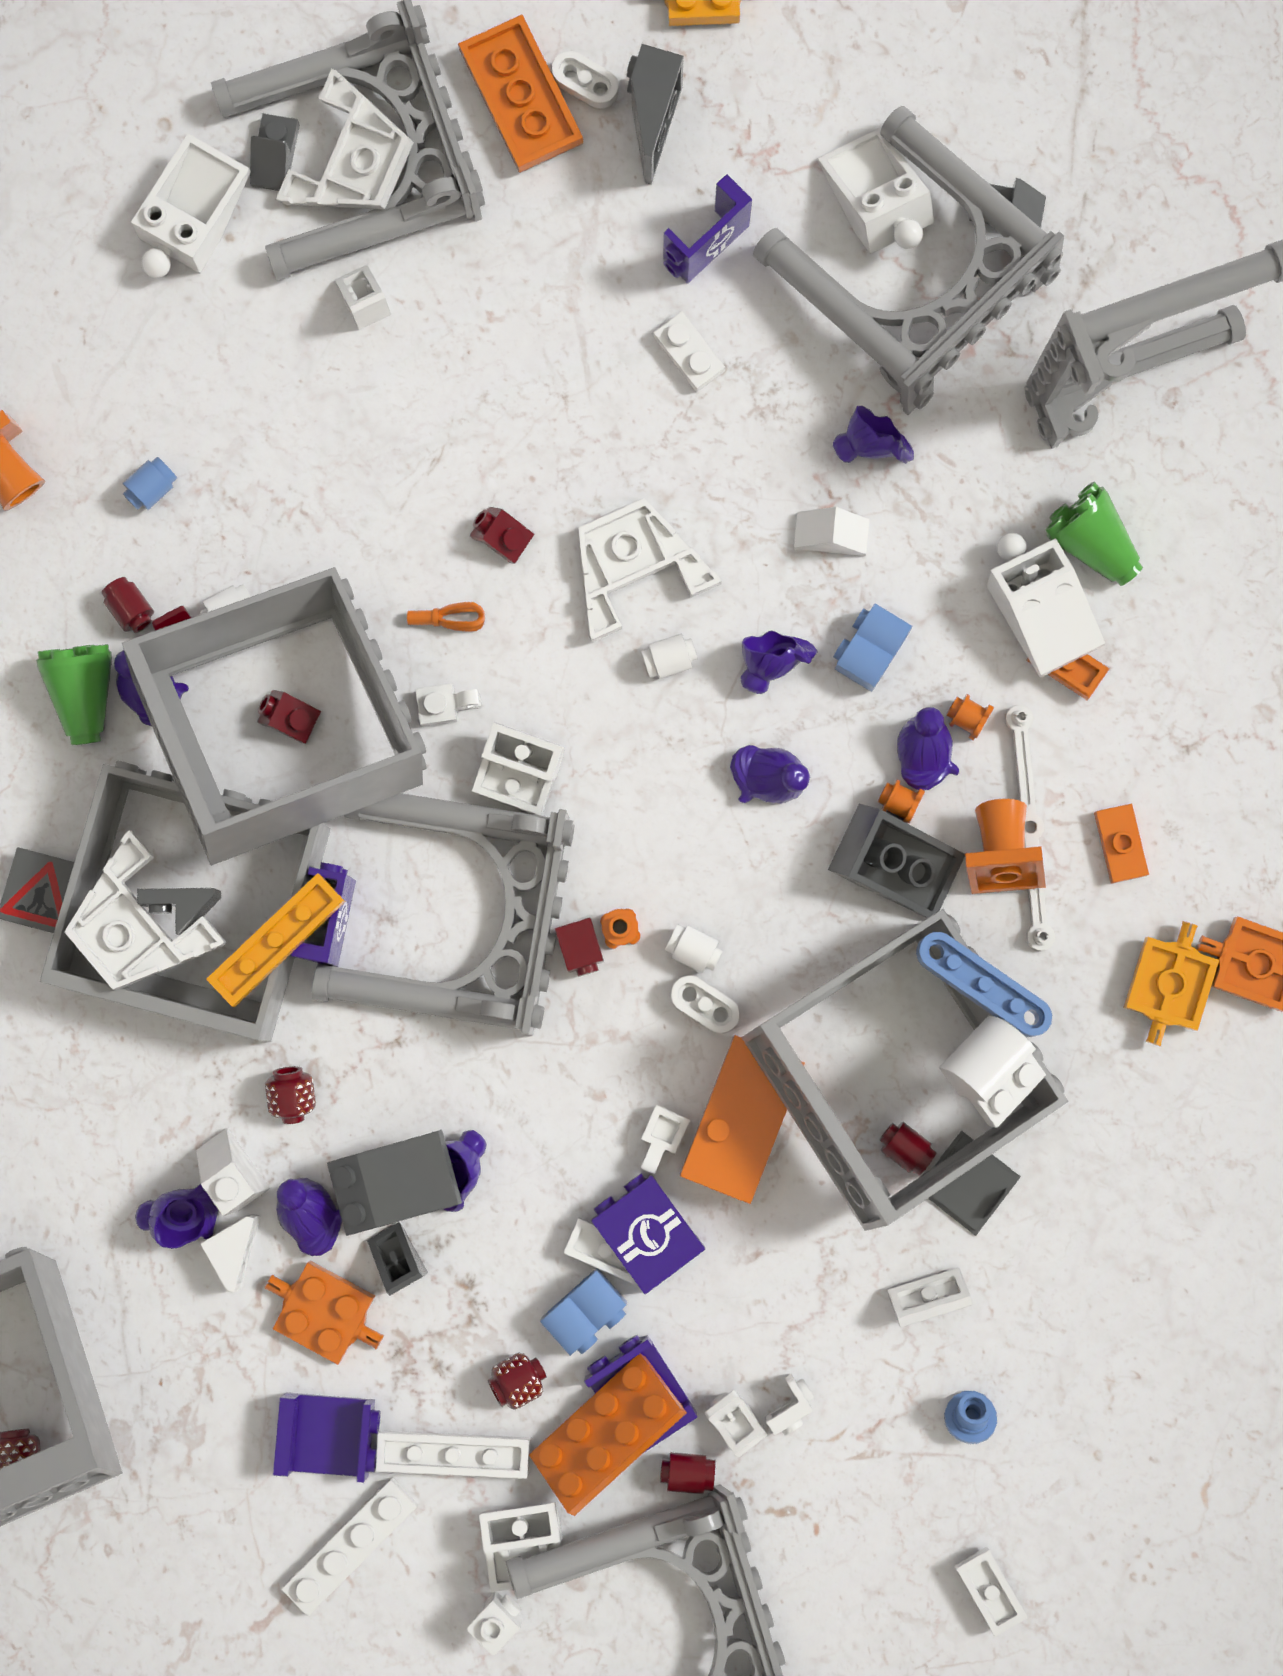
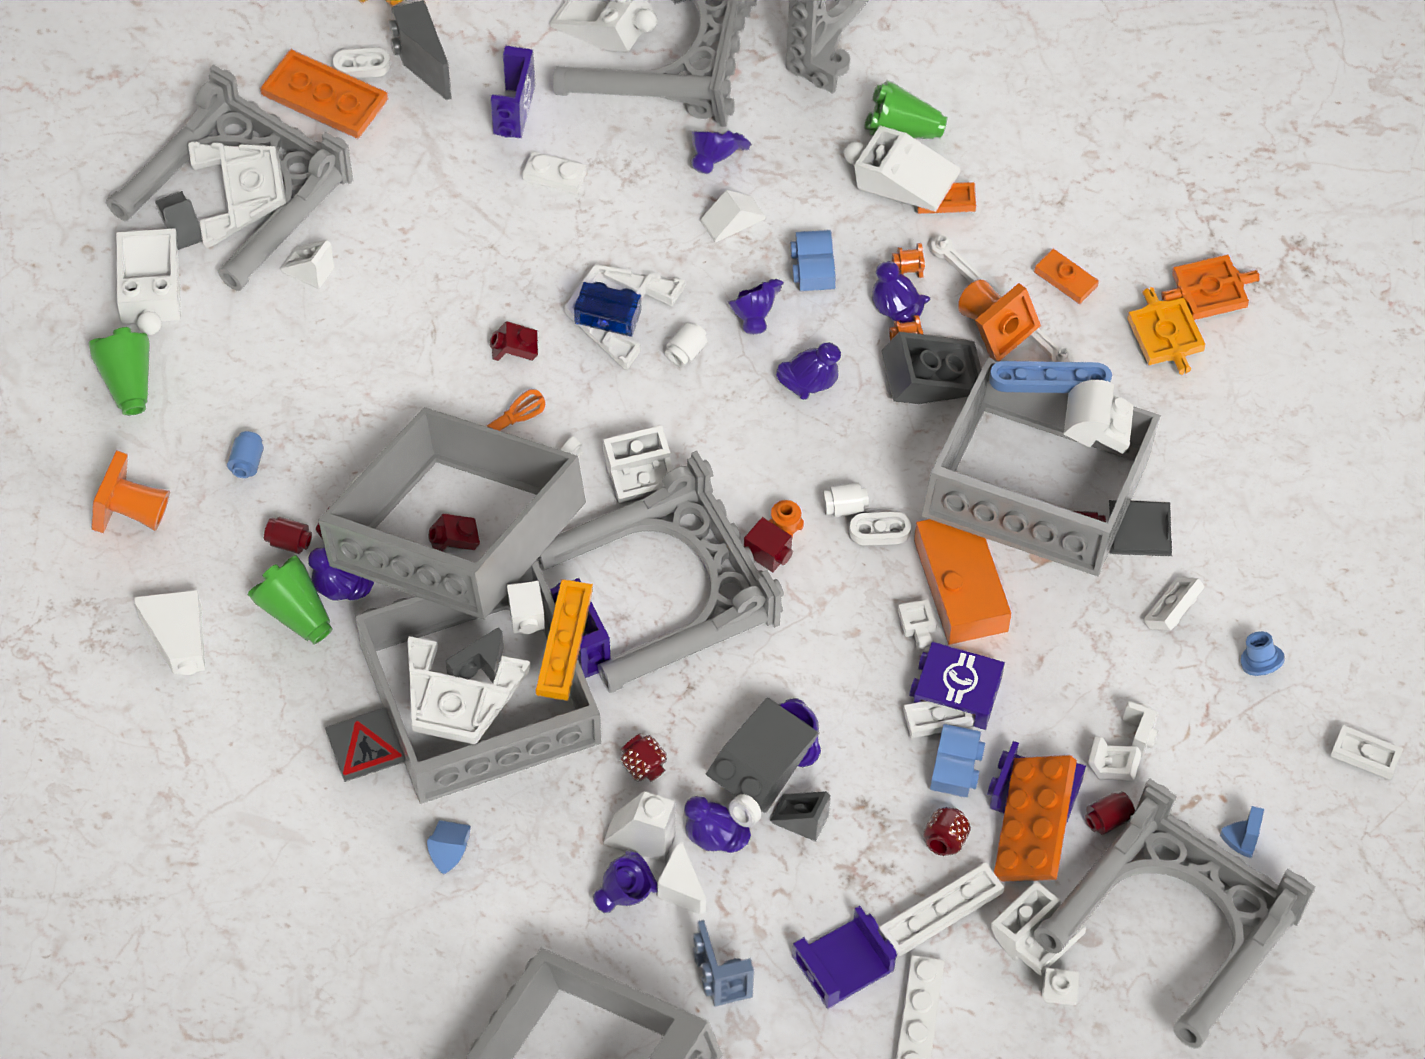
camera: 40 degrees left, 25 degrees down
(49, 1051) = (448, 844): none -> medium blue tile
(94, 304) = (124, 367): none -> bright green cone
(195, 1396) = (726, 982): none -> sand blue bracket
(263, 878) = (526, 607): none -> white brick
(324, 1312) = (777, 882): orange plate -> none
(335, 1228) = (744, 810): none -> white tile
(612, 566) = (608, 308): none -> clear blue brick
(802, 1588) = (1244, 834): none -> medium blue tile

